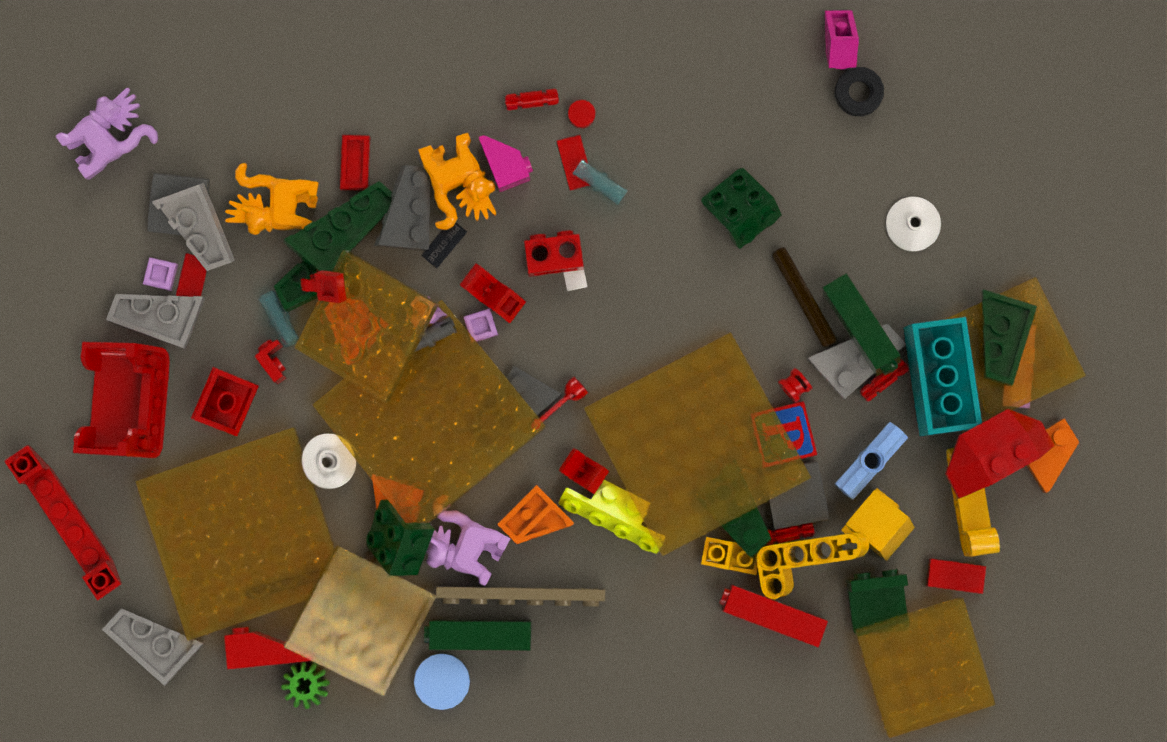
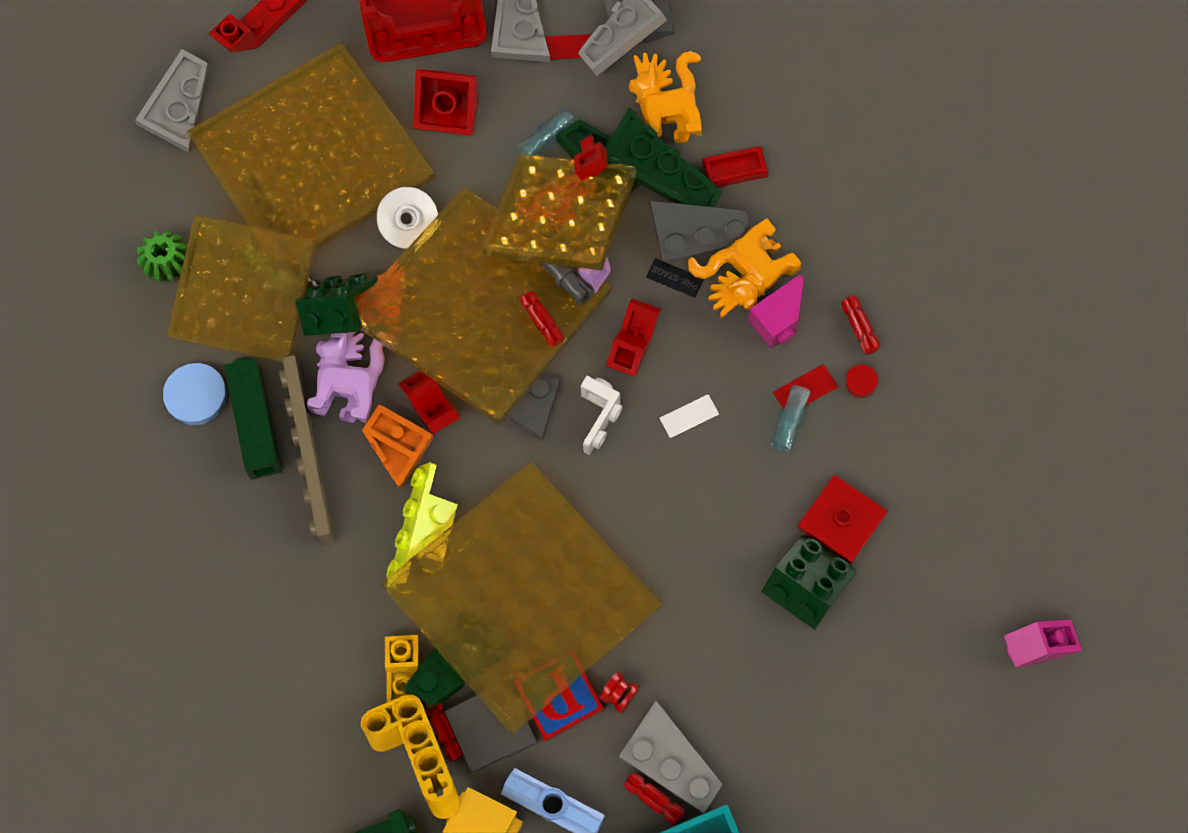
camera: 80 degrees right, 15 degrees down
(160, 274) = (562, 15): lavender tile -> none
(256, 649) = (190, 194): red slope -> none
(272, 366) = (497, 135): red bracket -> none
(462, 366) = (542, 319): none -> red axle
(481, 325) = (595, 336): lavender tile -> none
(505, 481) = (428, 401): none -> red slope
(536, 334) = (601, 394): none -> white bracket
(555, 261) = (688, 390): red brick -> none
(573, 391) = (548, 450): red hinge -> none
(583, 471) = (460, 480): red bracket -> none
(696, 165) = (842, 519): none -> red plate
(773, 615) = (343, 735): red brick -> none
(804, 297) = (726, 679): dark brown axle -> none
(862, 325) = (709, 749): dark green brick -> none
(864, 75) = (1003, 668): black tyre -> none
(903, 233) = (841, 802): white dish -> none

